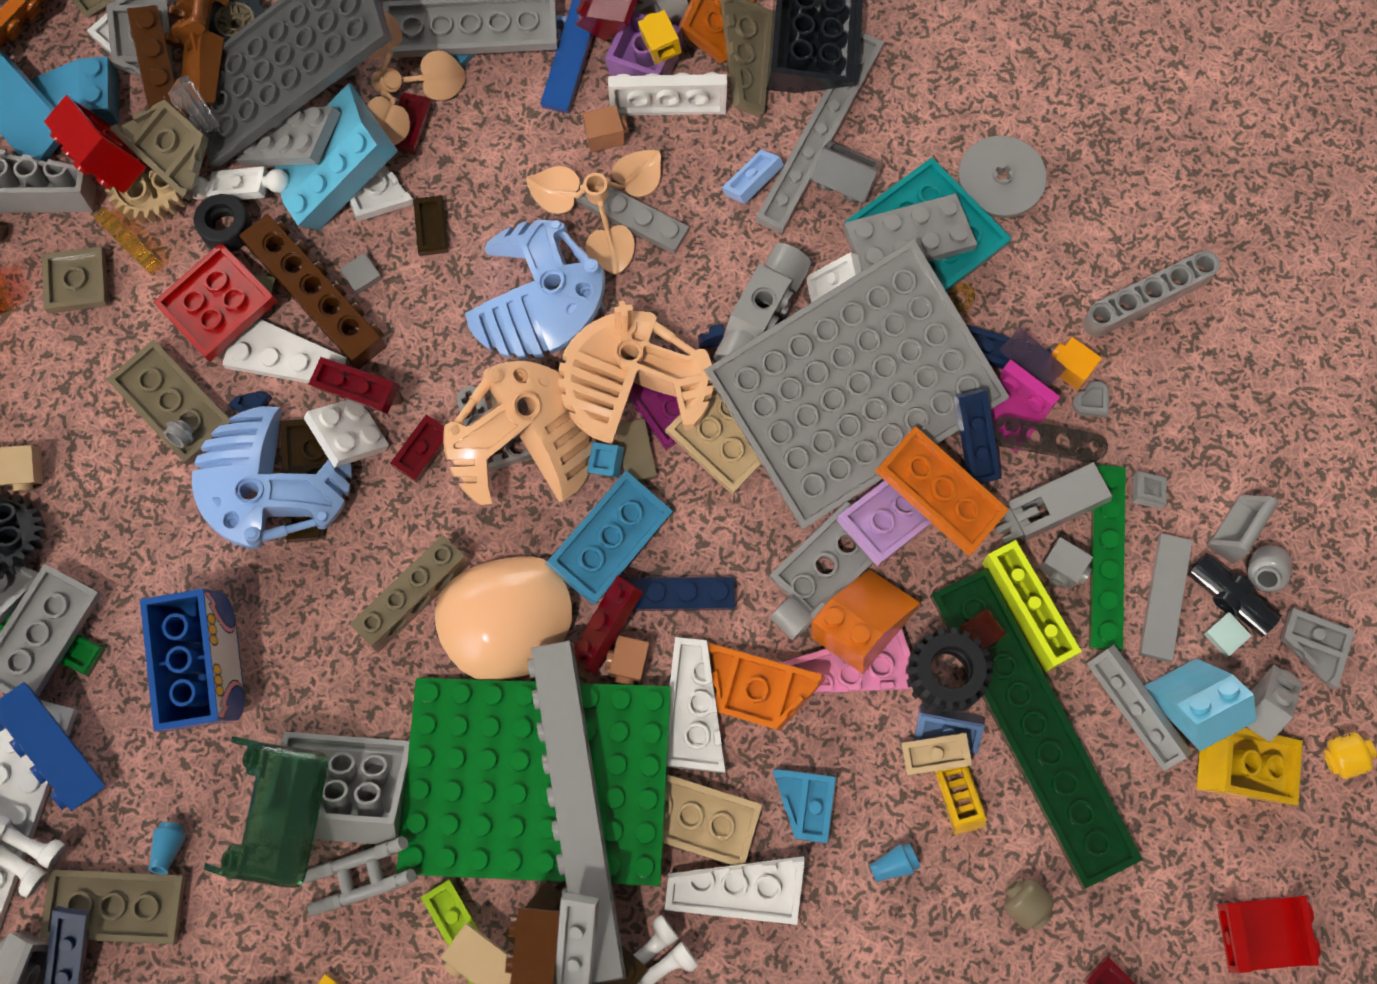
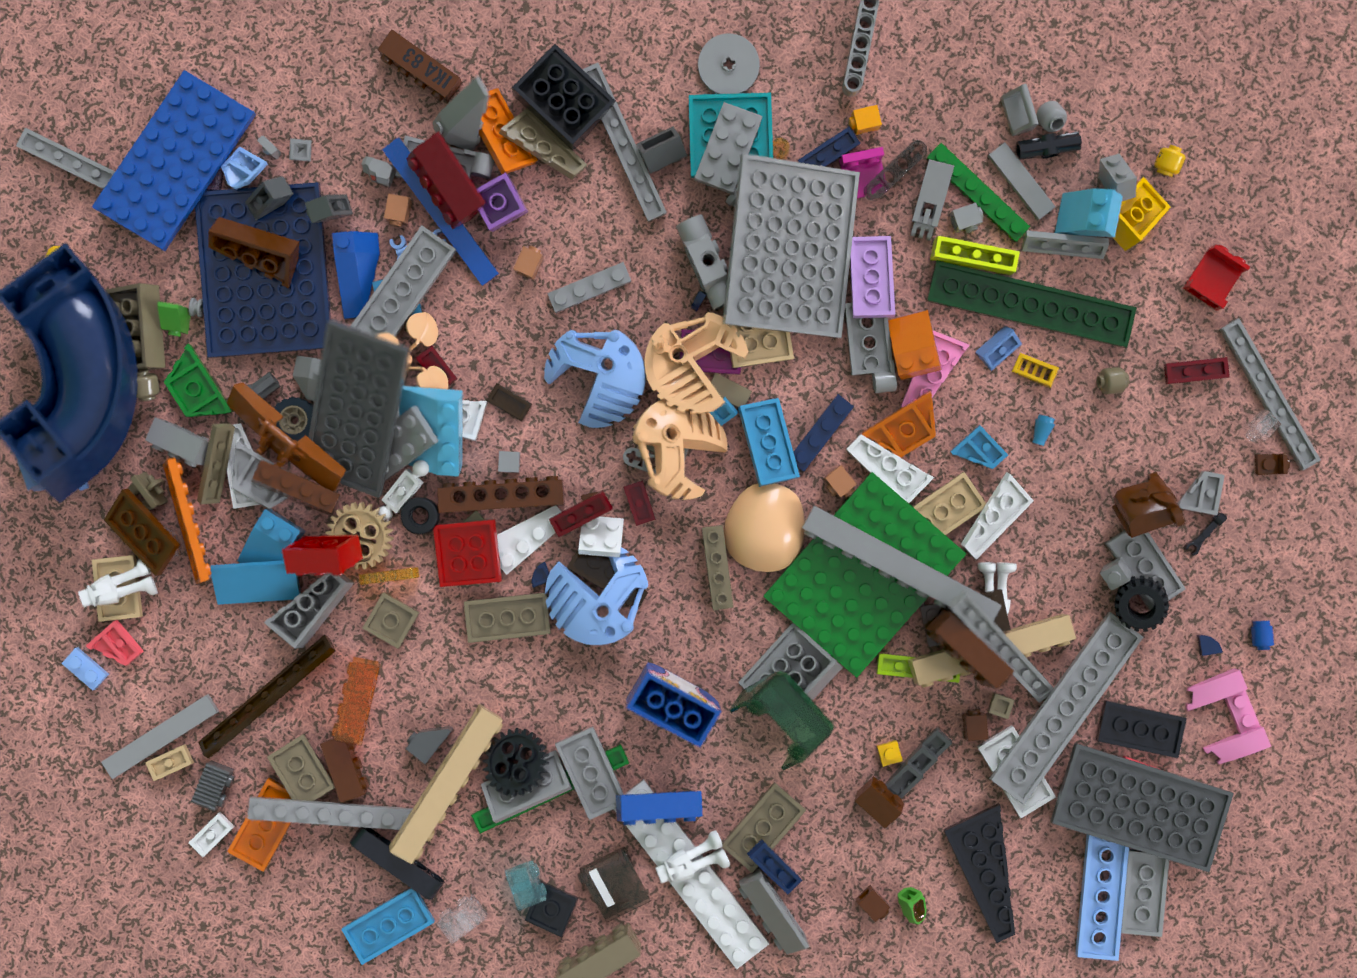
camera: 50 degrees left, 15 degrees up
(165, 846) = (753, 780): dark azure cone -> none
(166, 145) = (354, 514): dark tan wing -> none
(179, 433) = (534, 625): light grey plate -> none
(191, 104) = (343, 484): clear plate -> none
(342, 868) = (838, 684): light grey piece -> none
(558, 186) = (543, 316): light nougat plant -> none
(606, 624) = (813, 478): dark red plate -> none
(659, 37) = (504, 190): yellow brick -> none
(668, 94) = (532, 218): white plate -> none
(752, 176) = (621, 203): light blue plate -> none
(833, 275) = (719, 208): white plate -> none
(936, 754) = (1008, 365): tan plate -> none
(942, 490) = (881, 251): orange plate -> none
(970, 655) = (988, 314): black tyre -> none
(977, 435) = (867, 207): dark blue plate -> none
(984, 628) = (967, 290): clear red tile -> none
(1033, 357) = (848, 141): clear purple plate -> none
(1093, 400) = (891, 126): light grey tile -> none
(1149, 490) = (962, 140): light grey tile -> none
(1227, 634) = (1064, 166): light aqua tile -> none
(1318, 645) = (1106, 126): light grey wing -> none

